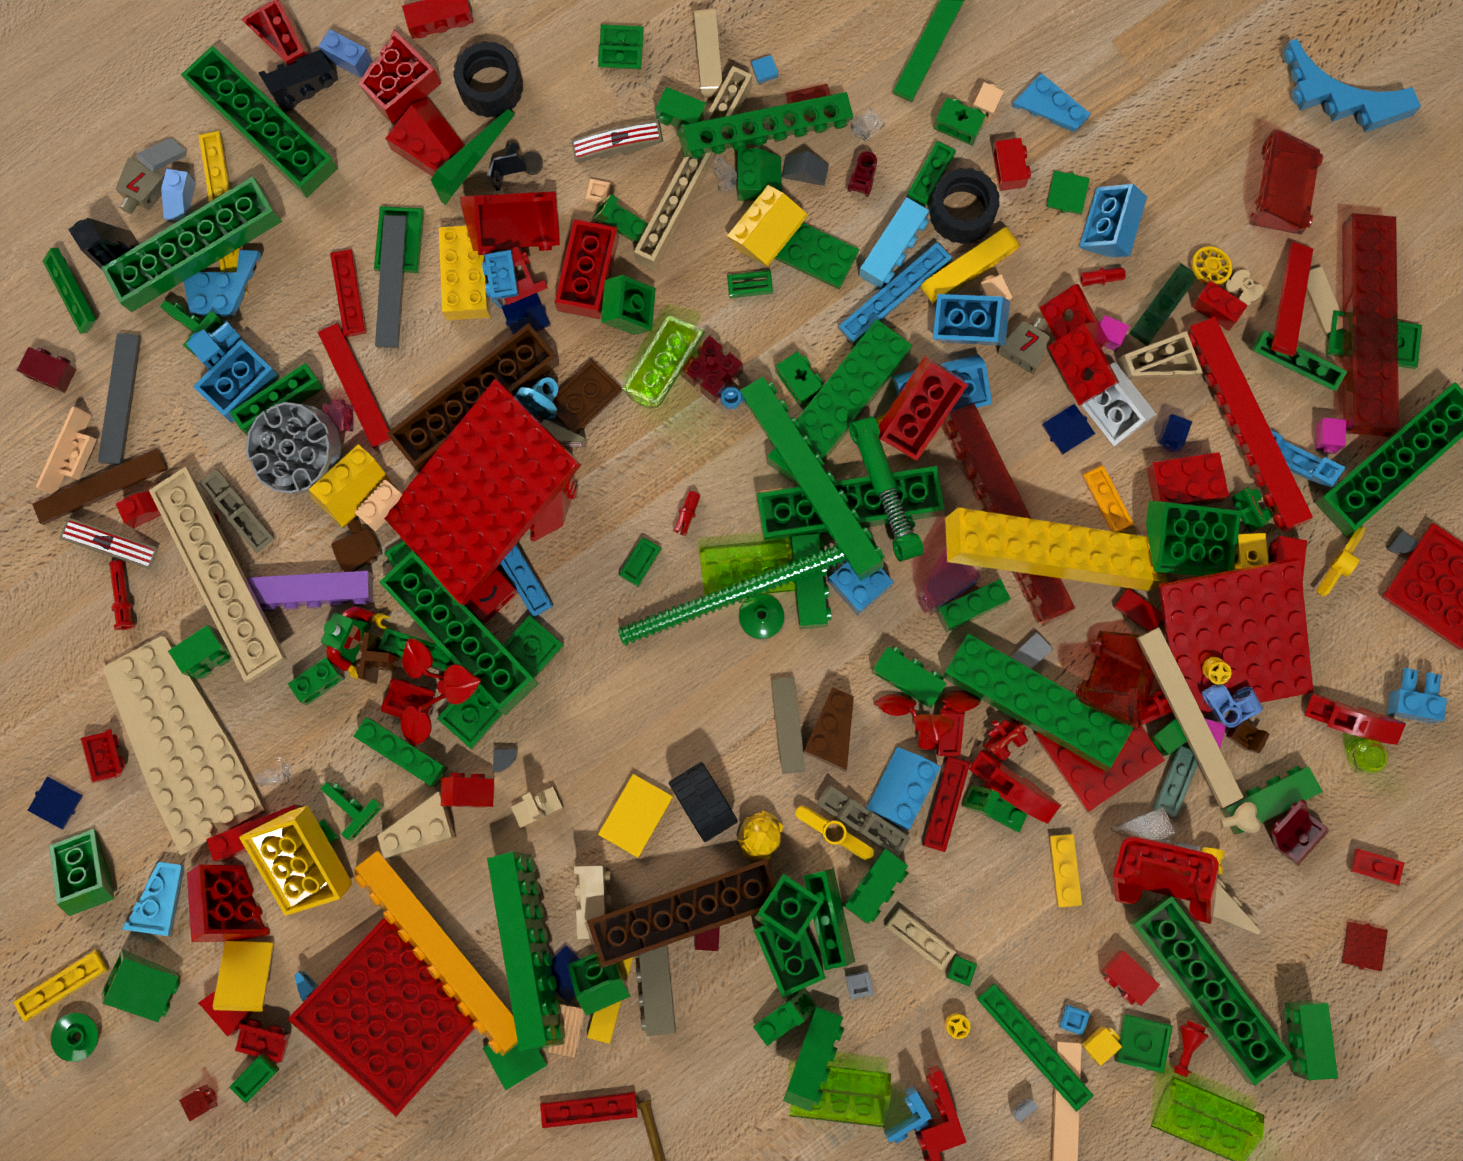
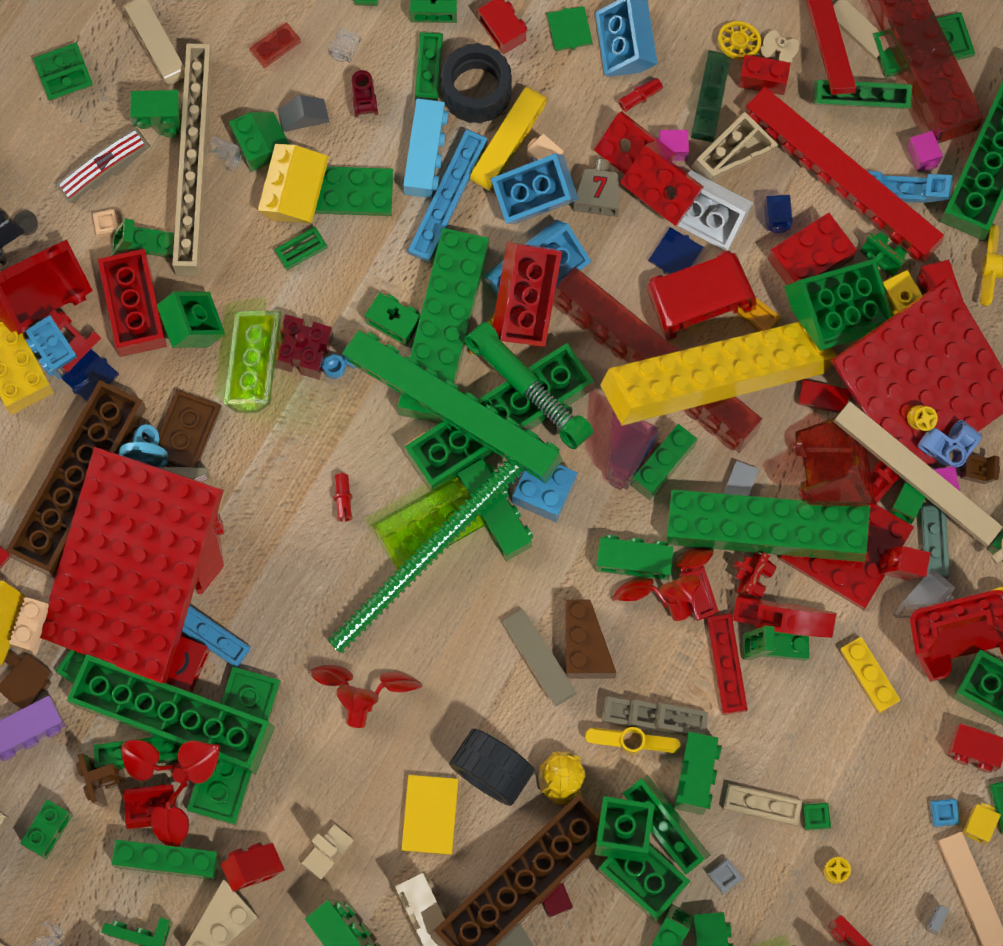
camera: 30 degrees left, 5 degrees down
(344, 636) = (56, 770): torso -> none
(503, 759) = (272, 820): dark grey tile -> none
(615, 695) = (359, 700): none -> red plant
(640, 562) = (318, 566): green tile -> none
(764, 69) = (217, 33): dark azure tile -> none
(765, 627) = (463, 577): green dish -> none
(837, 105) = (306, 38): green brick -> none
(903, 788) = (679, 666): dark azure slope -> none
(1035, 1047) = (919, 855): green tile -> none
(1073, 473) = (700, 293): none -> red windscreen
(1141, 790) = (904, 563): none -> red brick

